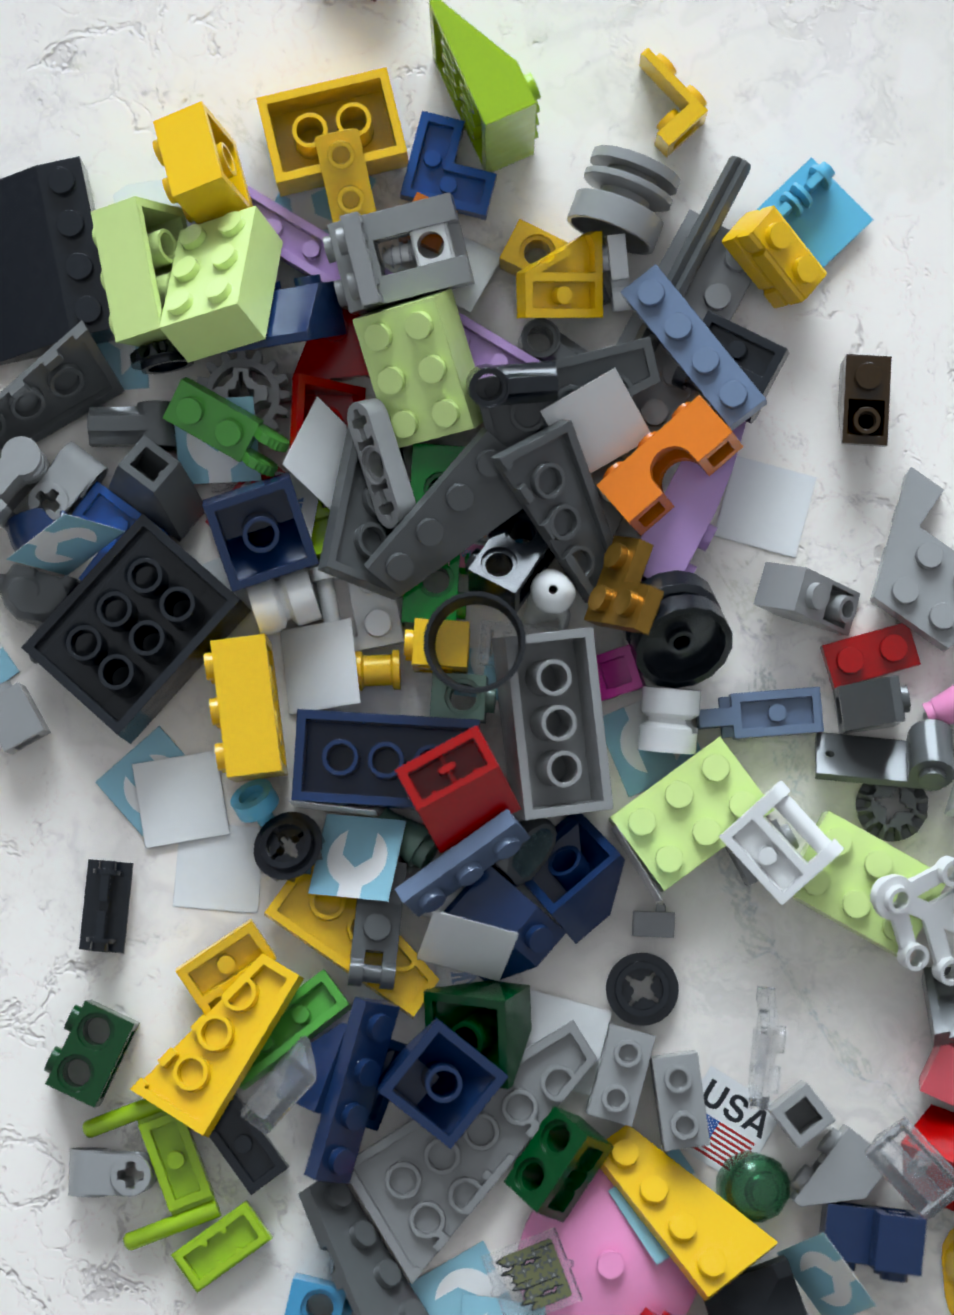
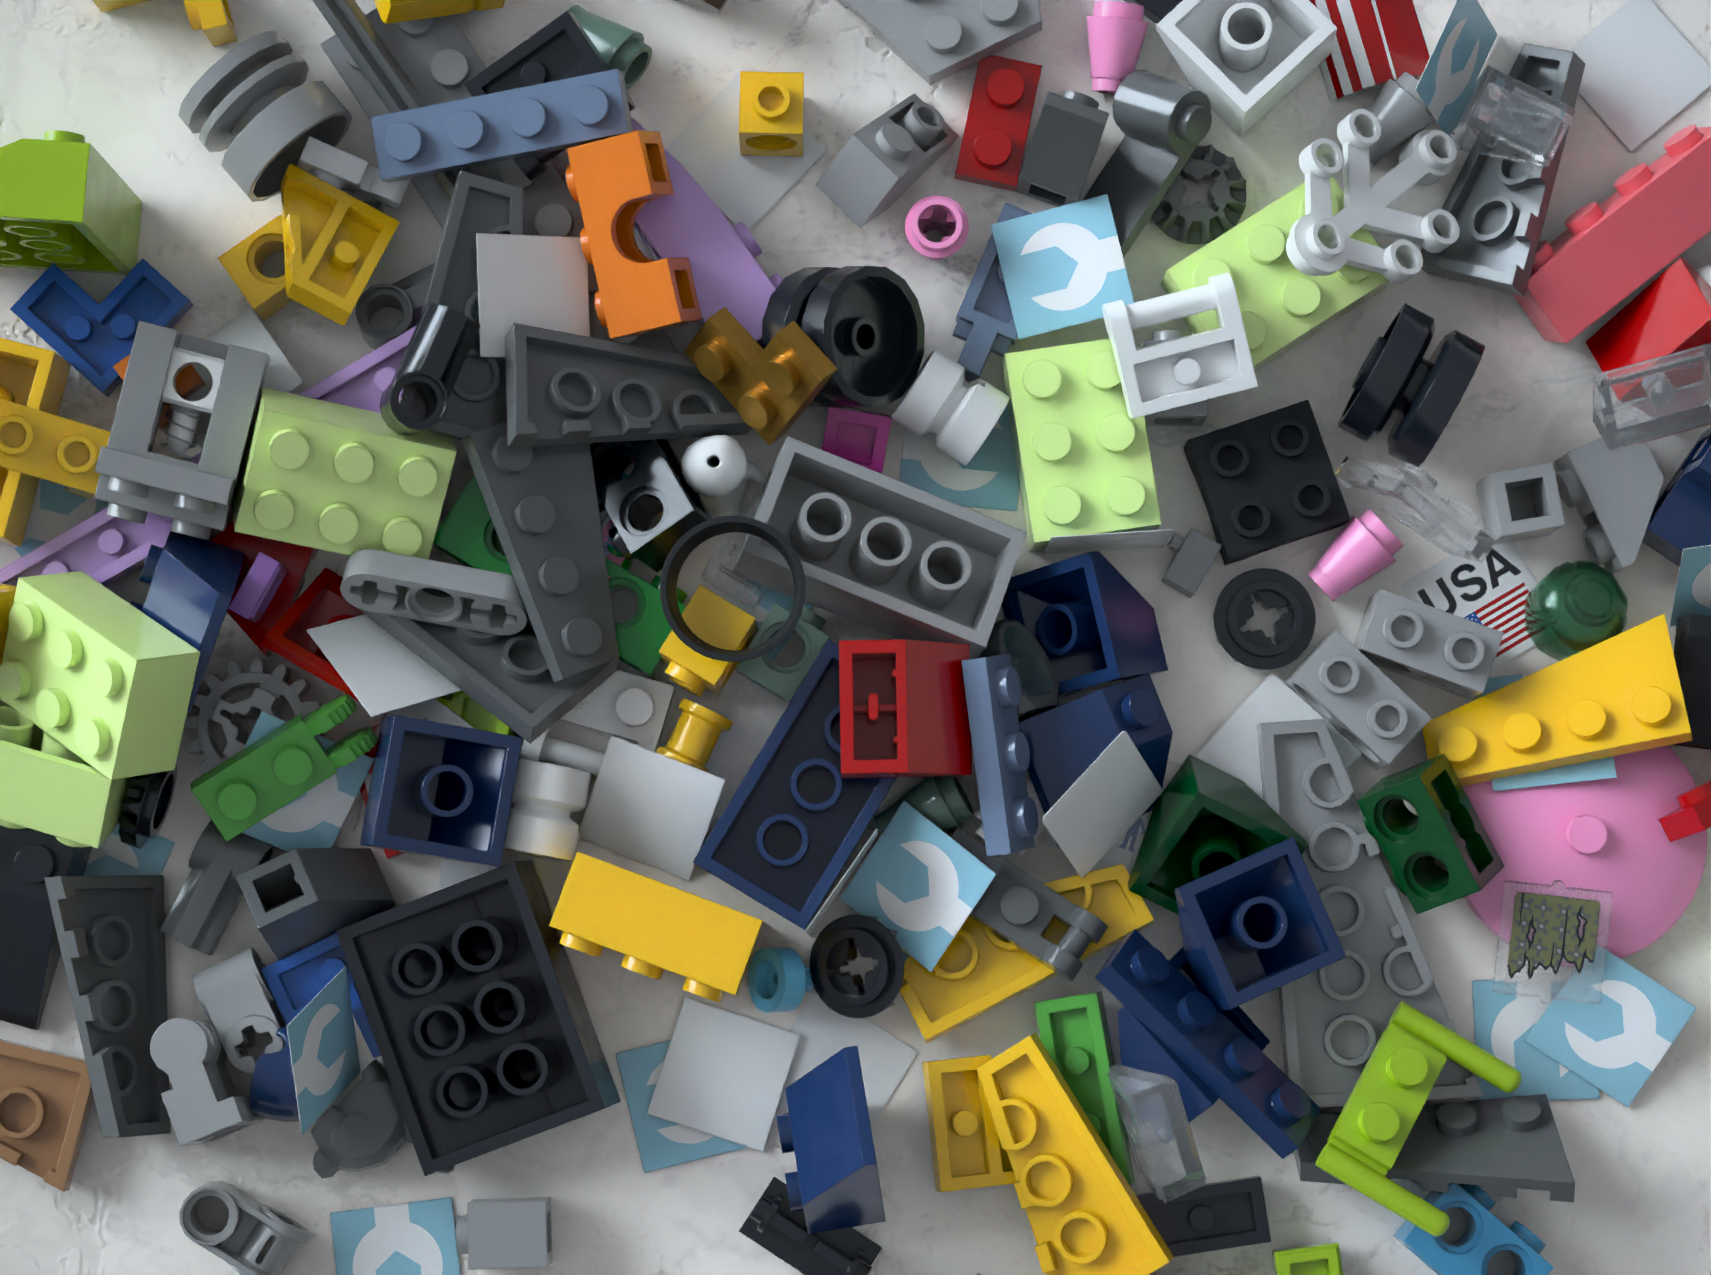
camera: 70 degrees left, 0 degrees up
(167, 889) = (832, 1147): none -> dark blue slope
(328, 353) = (258, 588): none -> medium lavender tile
(378, 1224) = (1388, 1103): none -> lime plate
(713, 1026) = (1355, 555): none -> bright pink cone
(730, 945) = (1266, 482): none -> black brick
(786, 643) = (936, 214): none -> bright pink cone
(787, 390) = (617, 44): none -> sand green cone
(796, 510) = (771, 113): none -> yellow brick
(797, 743) = (1061, 265): none -> medium azure sticker
(838, 1003) = (1415, 388): none -> black wheel

